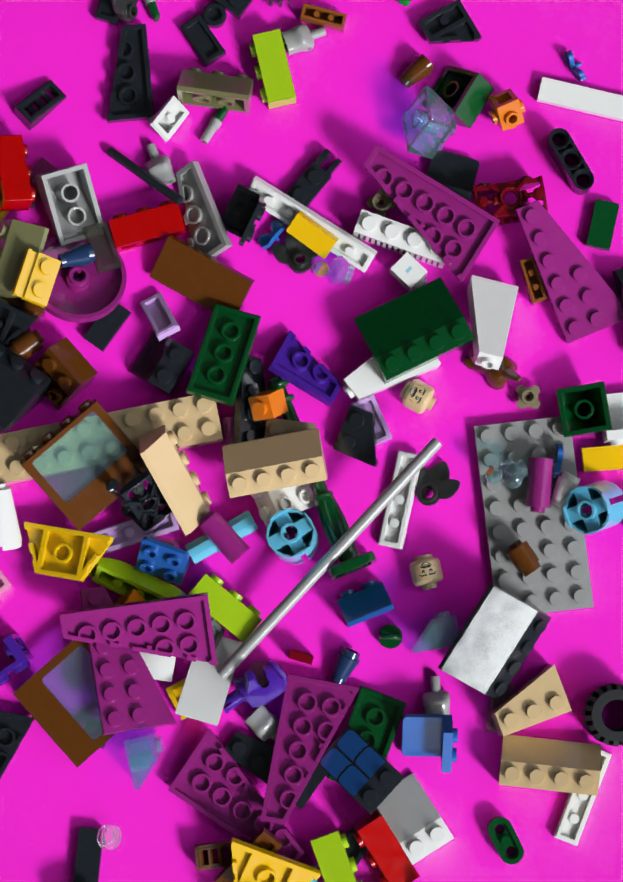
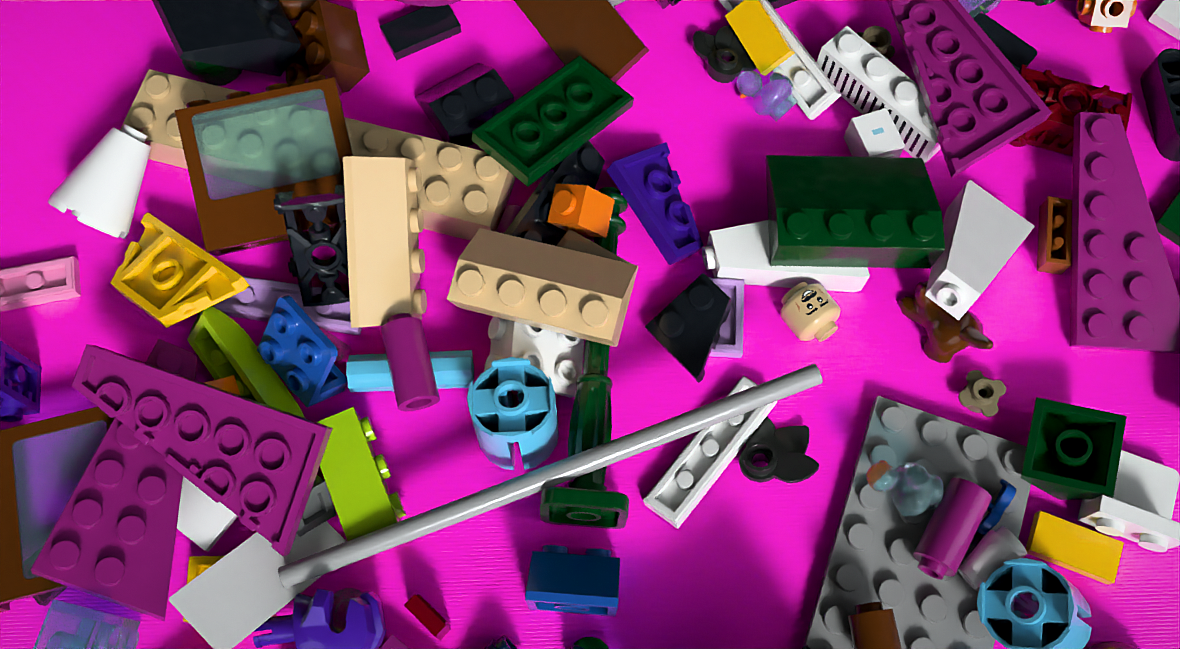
camera: 30 degrees right, 15 degrees down
(159, 316) = (495, 42): lavender tile -> none
(277, 228) = (693, 21): blue piece -> none
(426, 571) = (699, 581): tan head -> none

